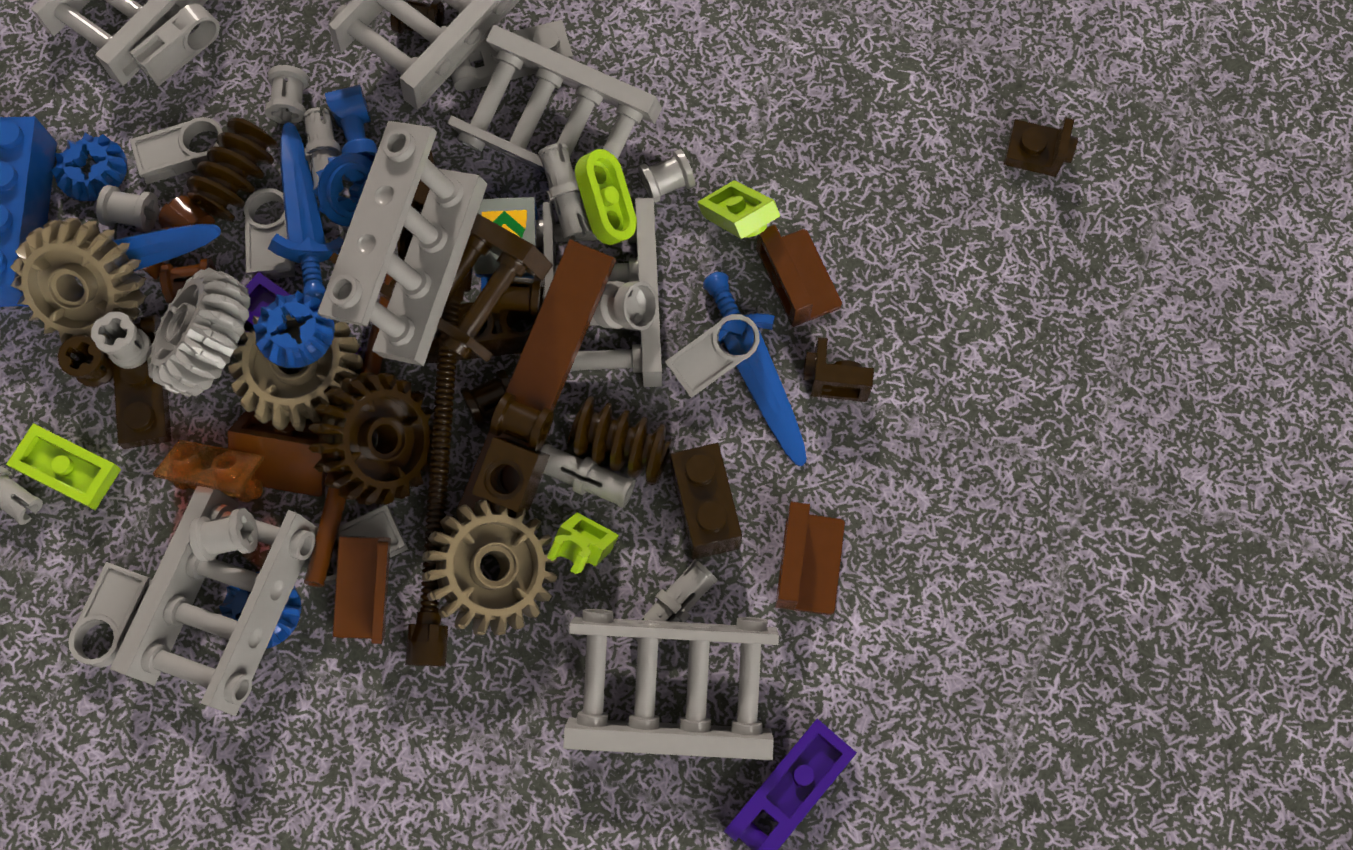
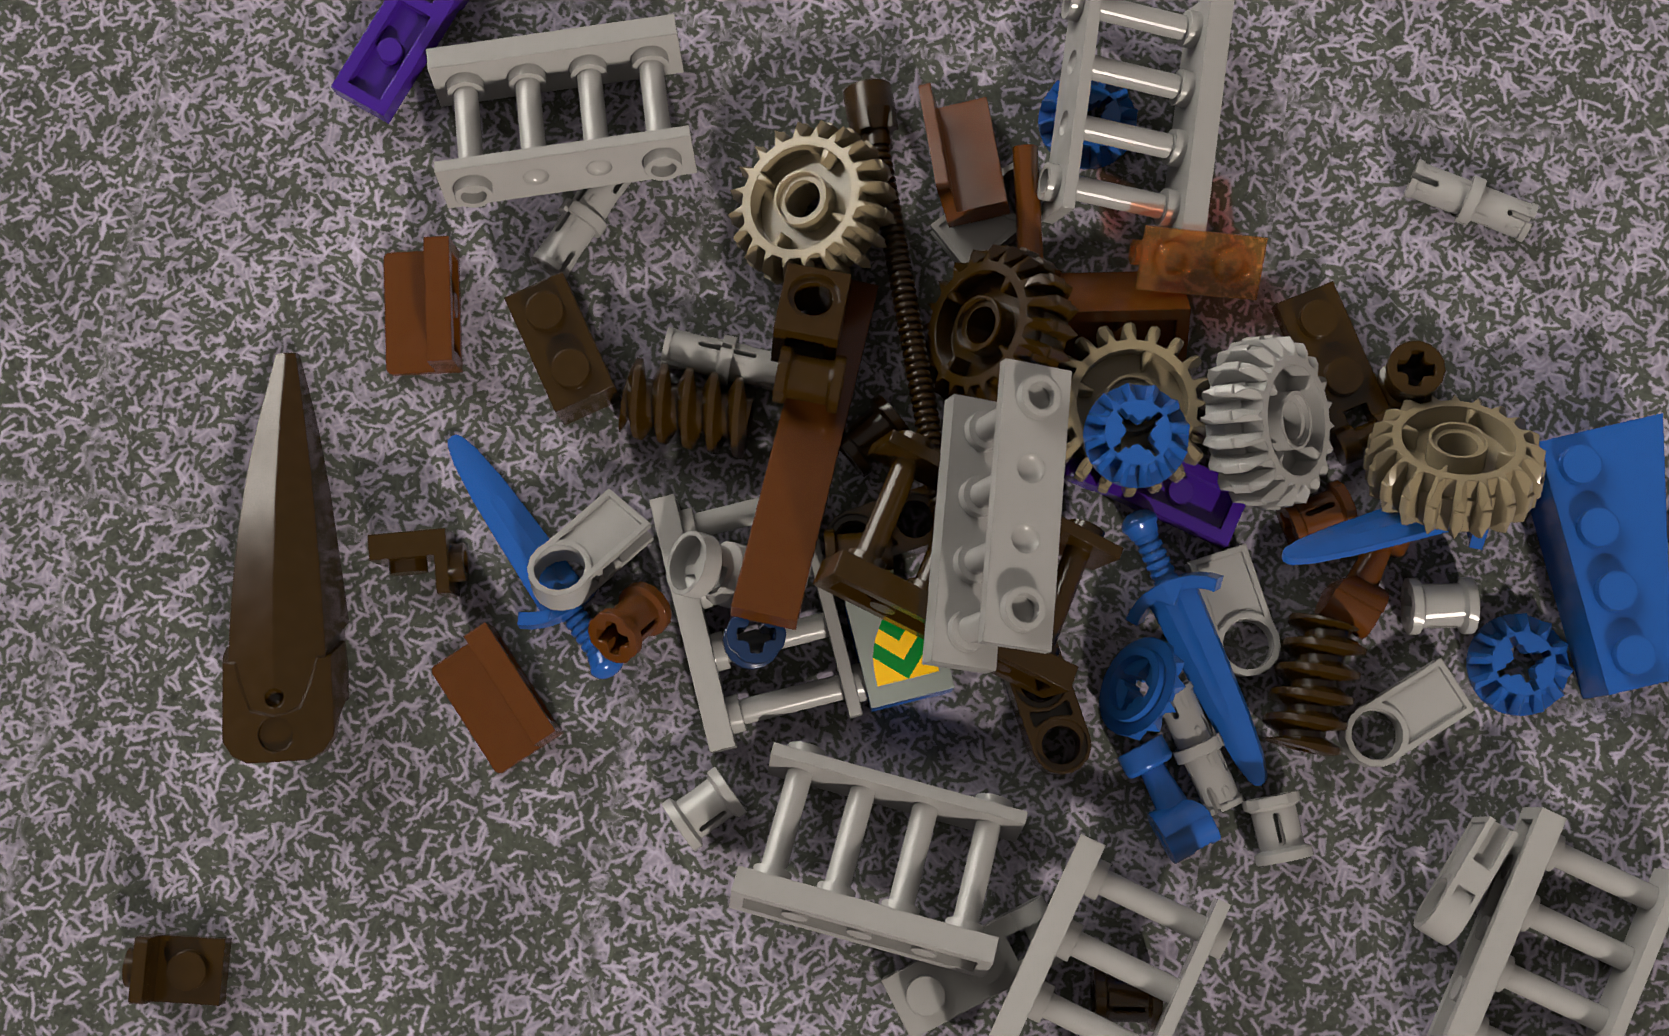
camera: 170 degrees right, 10 degrees up
(64, 466) = (1390, 239): lime plate -> none
(111, 602) = (1263, 89): light grey piece -> none
(122, 336) = (1378, 382): light grey bush -> none
(223, 535) = (1146, 165): light grey bush -> none
(564, 192) = (832, 727): light grey pin -> none
(582, 542) = (705, 265): lime plate -> none
(605, 197) = (772, 731): lime plate -> none
(608, 243) = (739, 650): none -> dark blue bush
(693, 298) = (622, 629): none -> reddish brown bush
(739, 210) = (590, 763): lime plate -> none
(938, 356) = (288, 601): none -> dark brown piece

